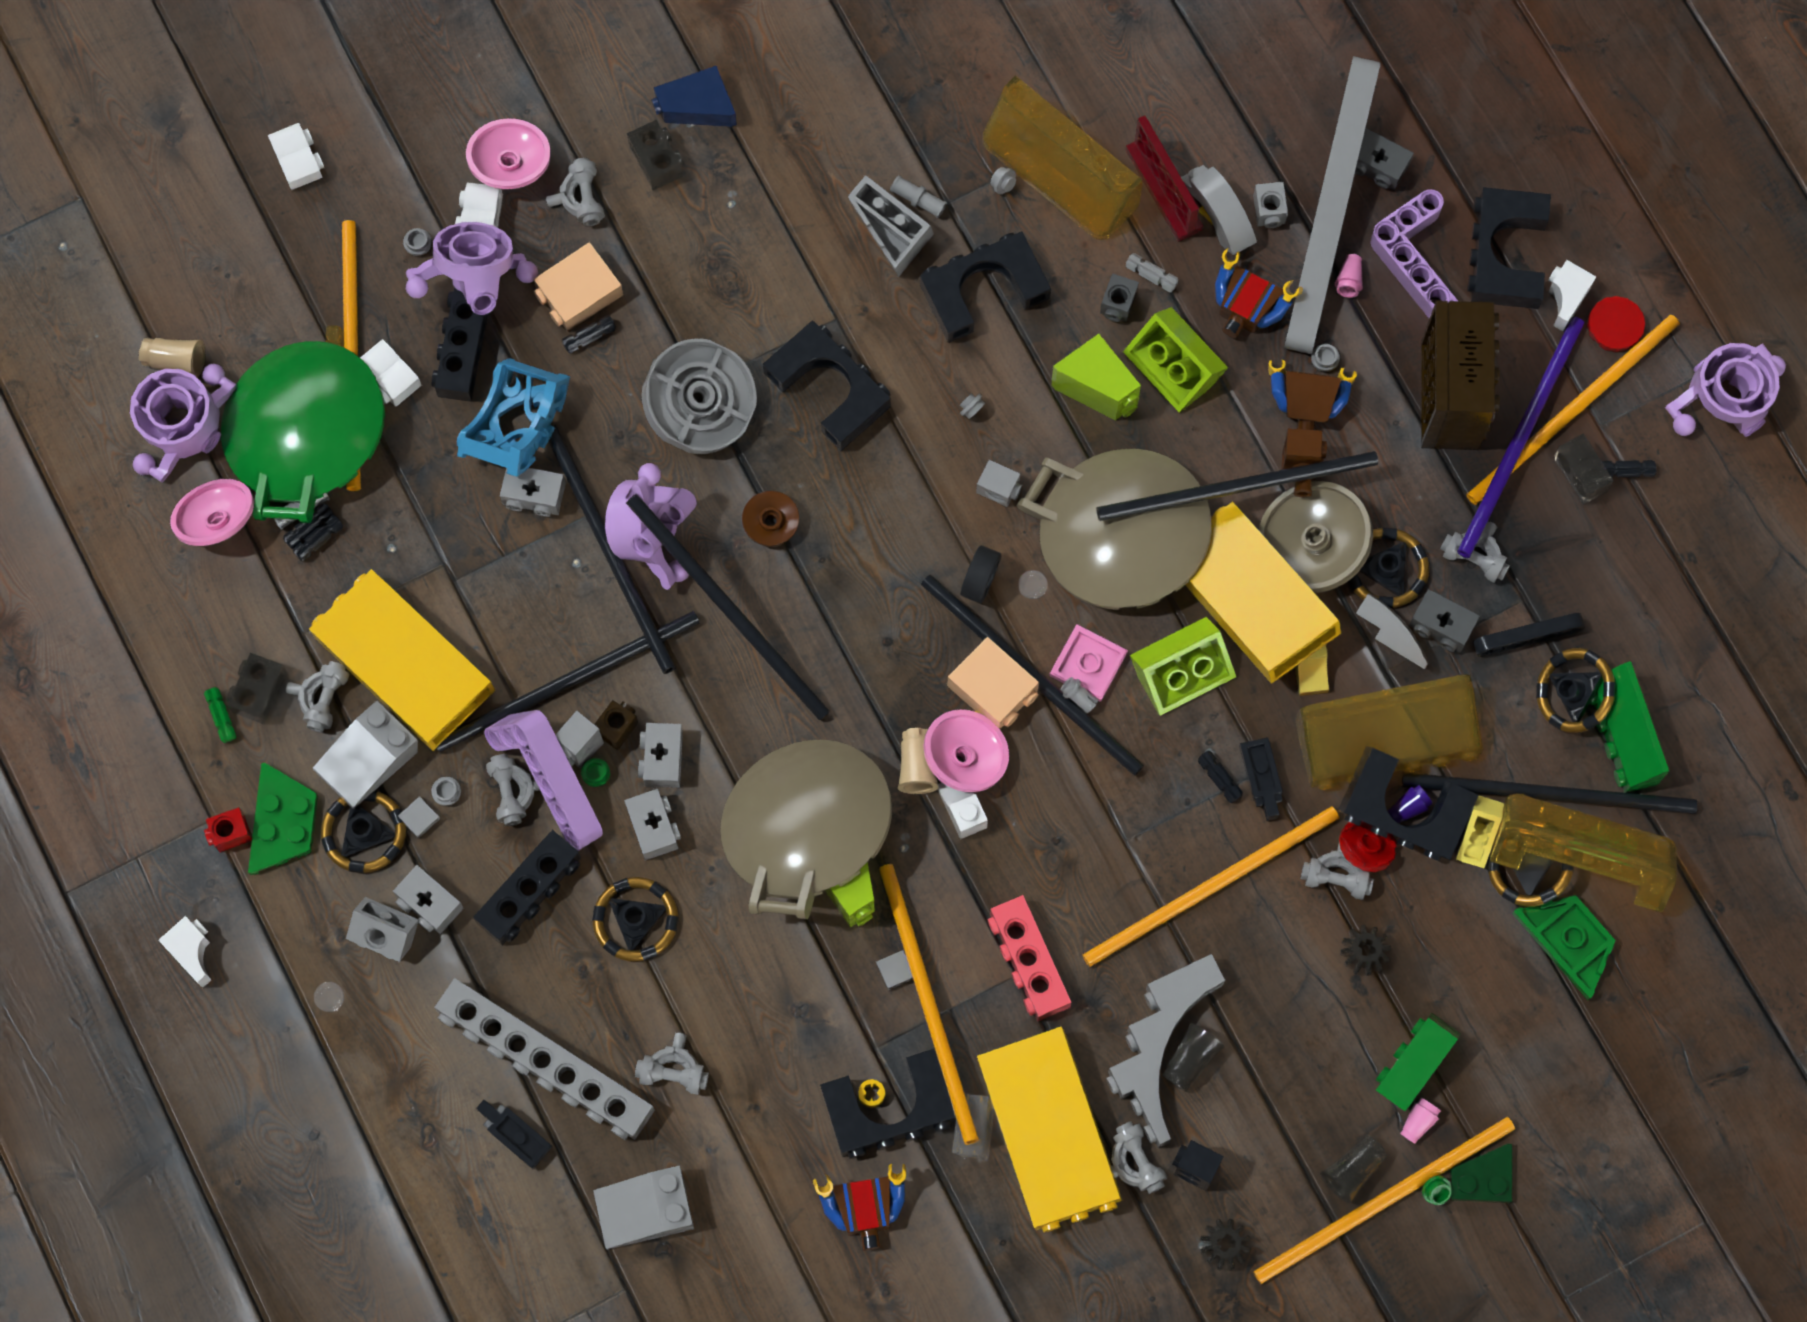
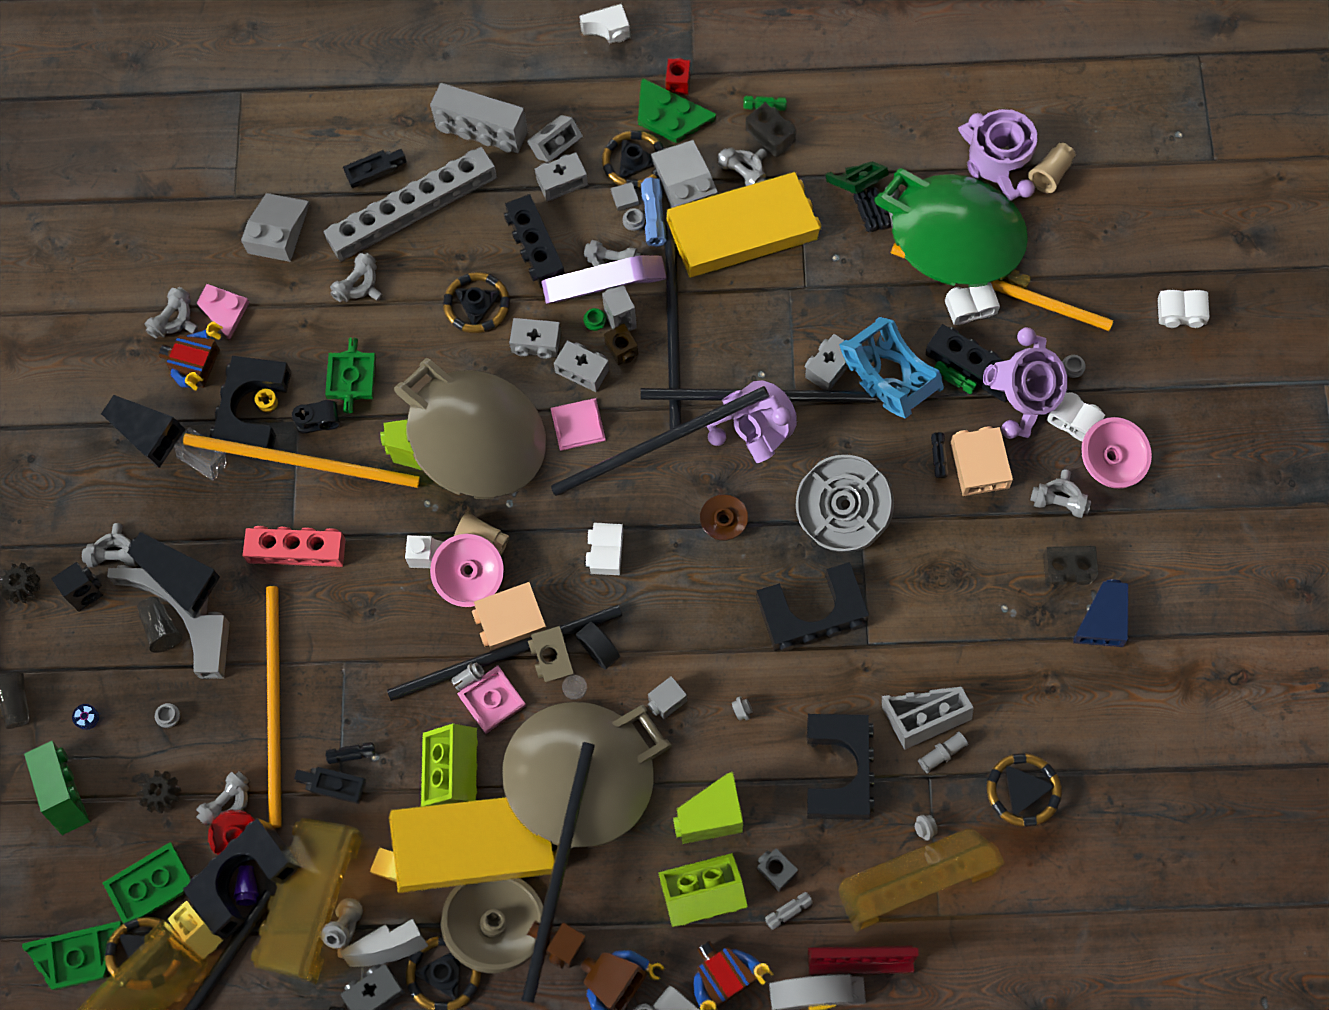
camera: 120 degrees right, 5 degrees down
(212, 512) = (915, 145): bright pink dish -> none
(279, 561) = (858, 177): none -> dark green wing
(328, 996) = (530, 95): clear plate -> none
(396, 1029) = (479, 118): none -> light grey brick
(443, 761) = (655, 228): none -> medium blue axle
(487, 356) = (956, 378): none -> green axle
(731, 731) = (578, 424): none -> bright pink piece
(781, 1213) = (223, 308): none -> bright pink wing
(796, 1010) = (350, 375): none -> green plate
(800, 1269) = (160, 326): none -> light grey piece
(862, 1017) = (317, 416): none -> black piece
(866, 624) = (605, 549): none -> white brick
(895, 970) = (342, 452): light grey tile -> none
(920, 103) = (1024, 789): none -> piece
(981, 1200) = (144, 427): none -> black slope
(1022, 606) = (558, 668): none -> dark tan brick
(1050, 1129) = (167, 501): yellow brick -> none
(1131, 1056) = (177, 574): none -> black slope
(1281, 992) = (167, 715): none -> light grey plate
(1328, 1081) = (85, 716): none -> clear blue tile
(1412, 672) = (340, 933): none -> light grey piece
(1420, 1120) = (16, 767): bright pink cone -> none
(1461, 905) = (148, 884): none -> green plate

